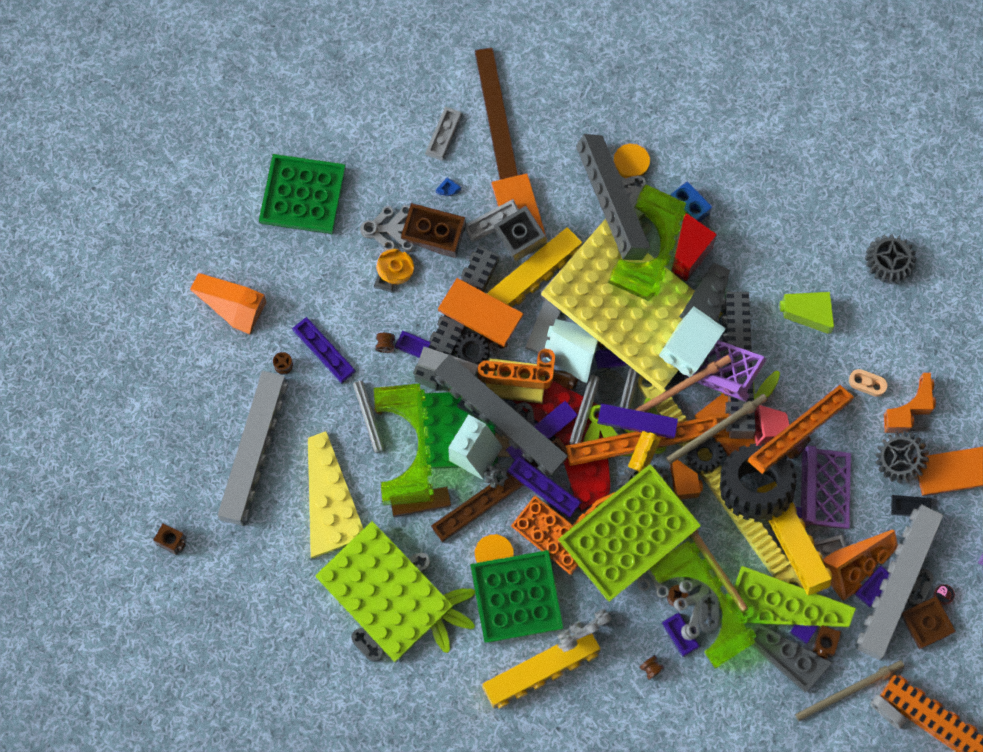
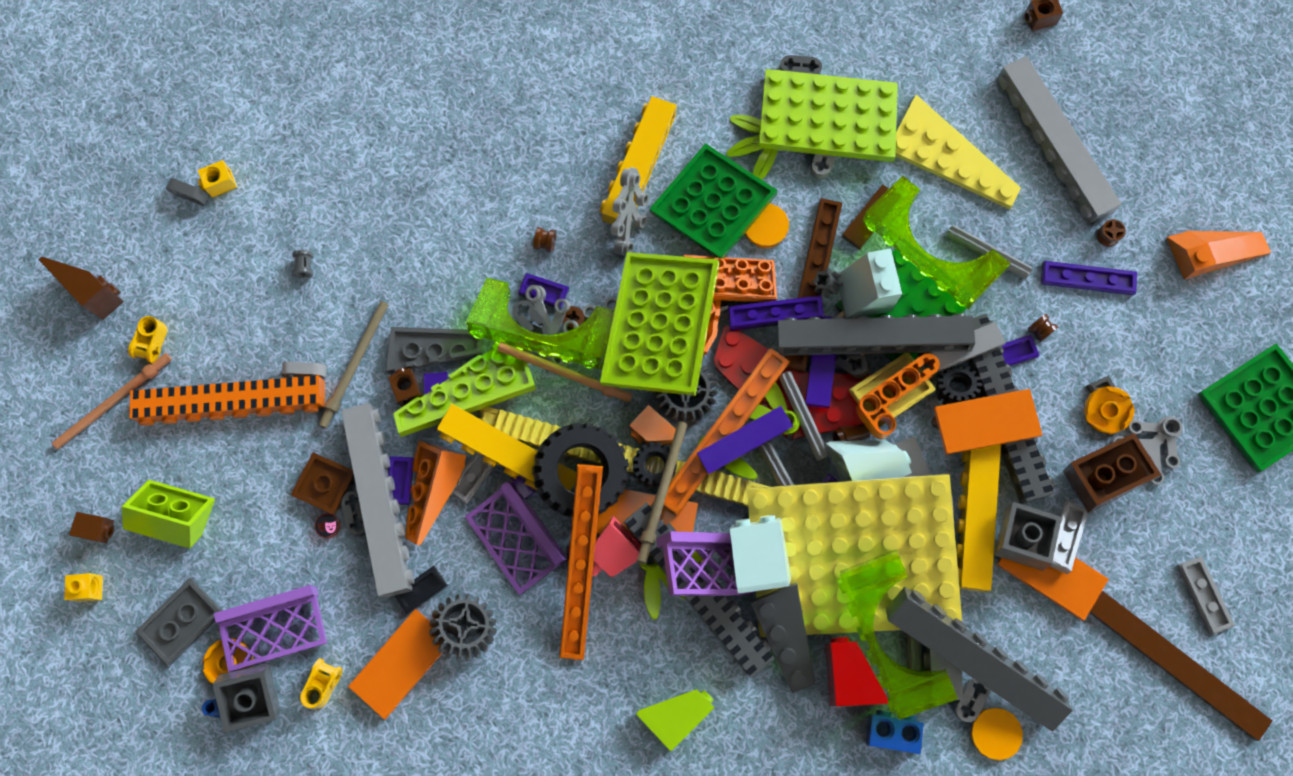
camera: 145 degrees right, 5 degrees up
(448, 187) = (1142, 538): blue tile -> none
(644, 451) = (712, 413): yellow hinge -> none
(713, 368) = (717, 546): nougat bar -> none
(867, 382) = (557, 685): light nougat plate -> none
(902, 418) = (485, 710): orange arch -> none

